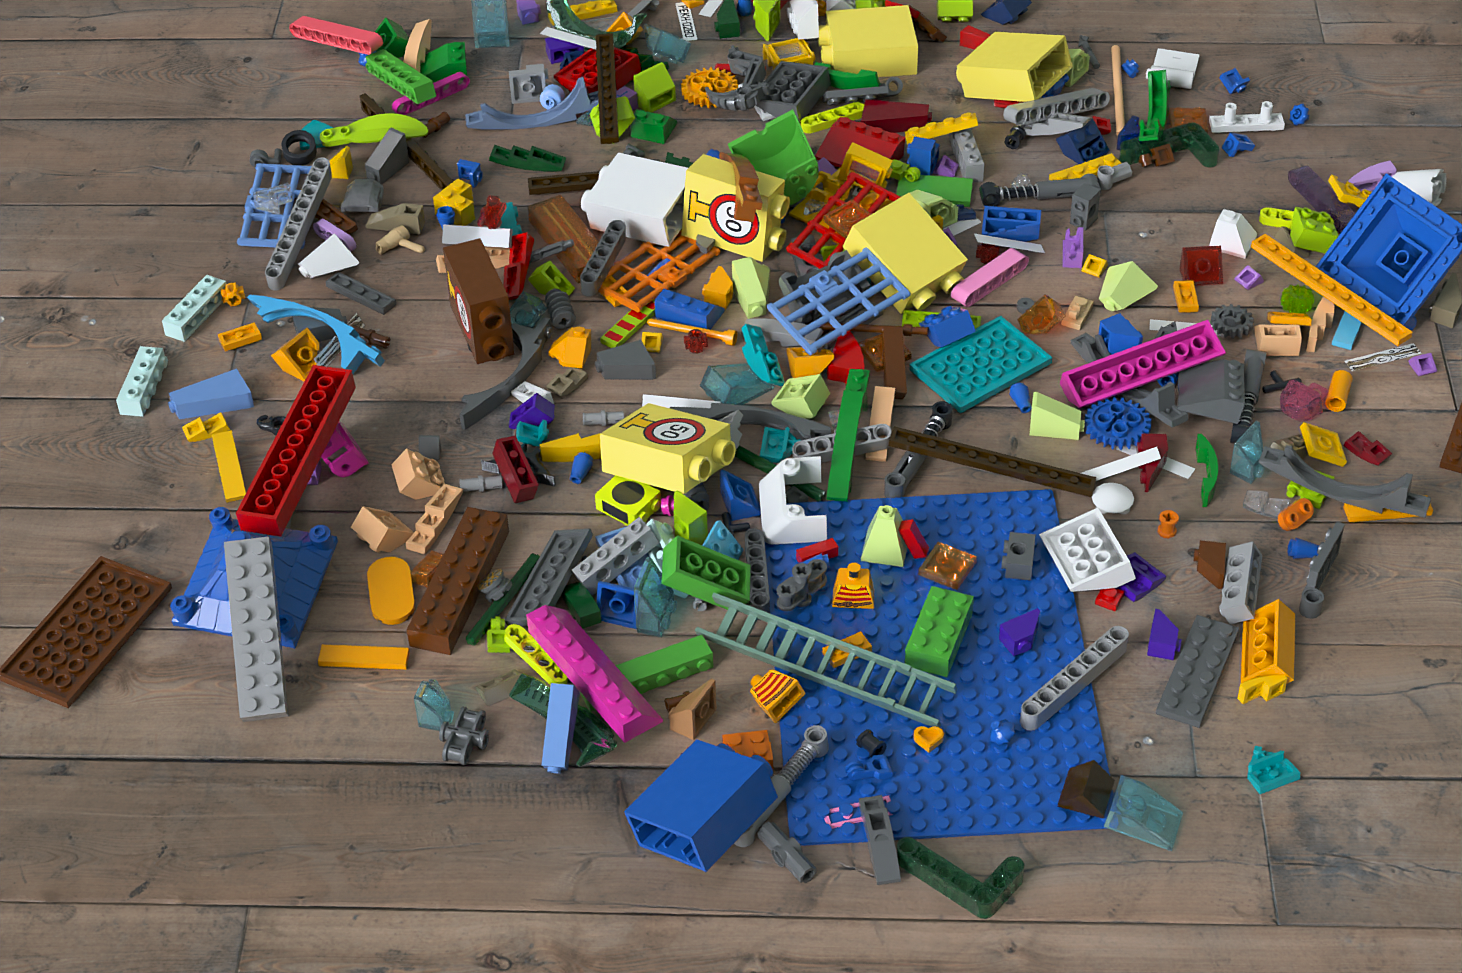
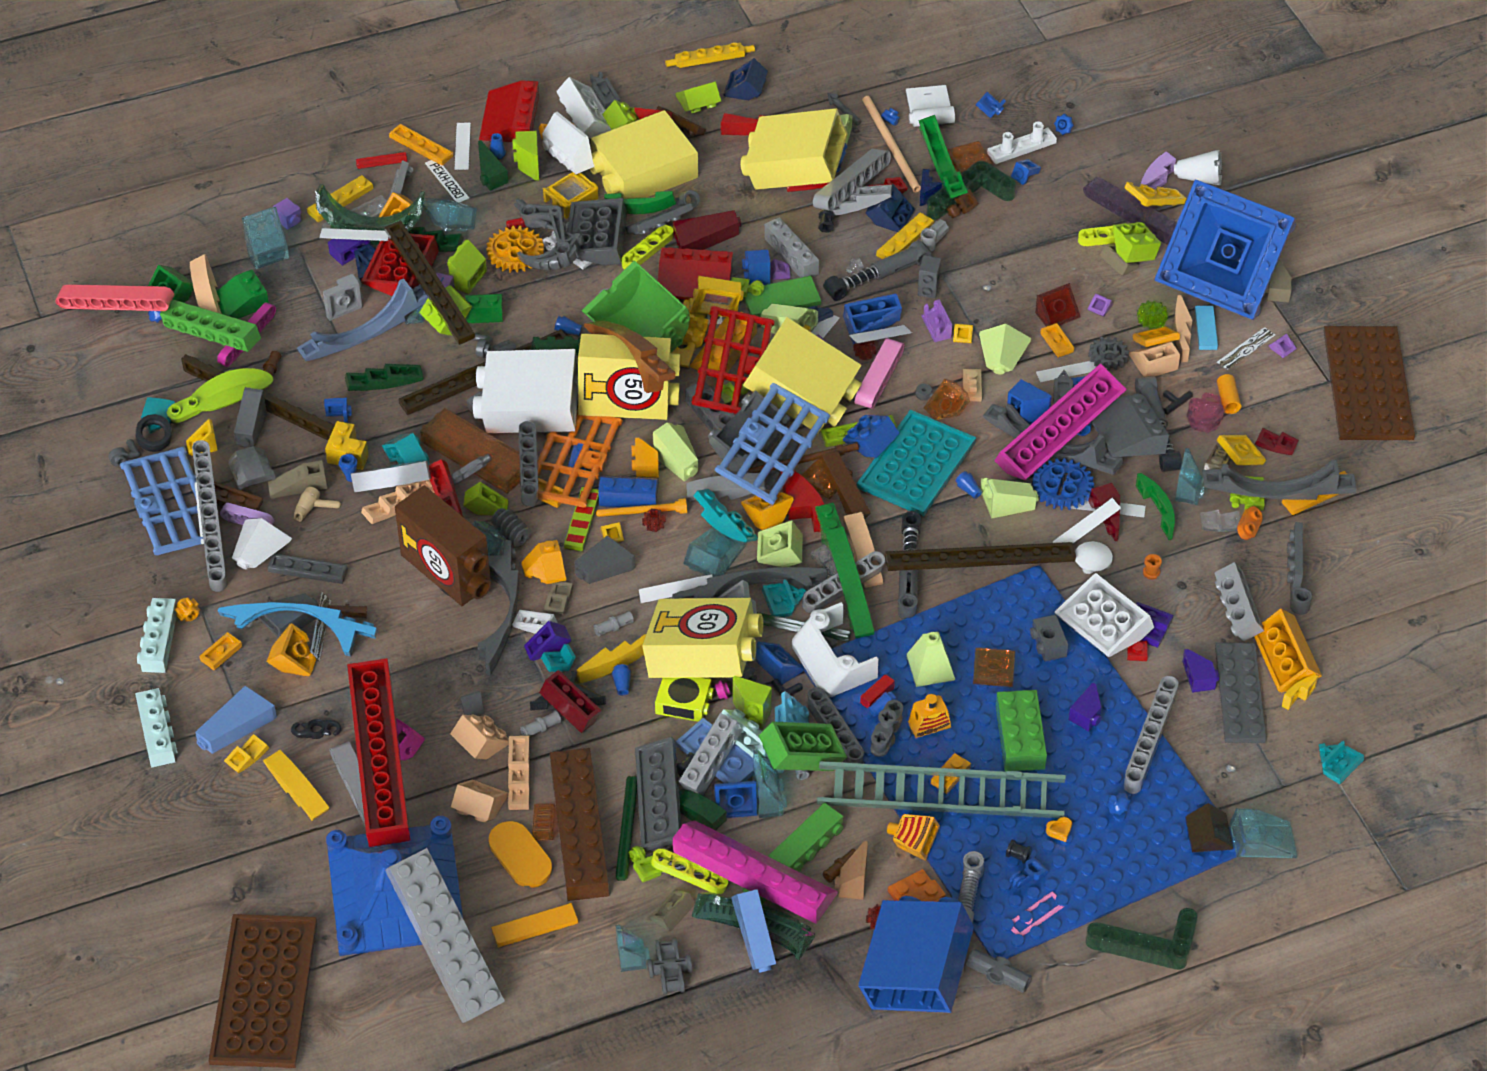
camera: 25 degrees left, 5 degrees up
(271, 198) = (166, 497): clear slope -> none
(492, 213) = (404, 451): clear red hips -> none
(495, 585) = (615, 818): dark grey wheel -> none
(551, 96) = (371, 303): light blue head -> none
(704, 243) = (606, 417): tile -> none
(813, 206) = (687, 348): clear slope -> none
(845, 217) = (738, 357): clear orange plate -> none
(880, 840) = (1071, 932): dark grey slope -> none
(913, 539) = (957, 652): red piece -> none
(948, 126) = (762, 234): yellow plate -> none
(1211, 561) = (1204, 590): reddish brown slope -> none
(1233, 234) = (1066, 266): white slope -> none
(1301, 549) = (1268, 554): blue cone -> none
(1332, 290) = (1180, 298): light orange plate -> none

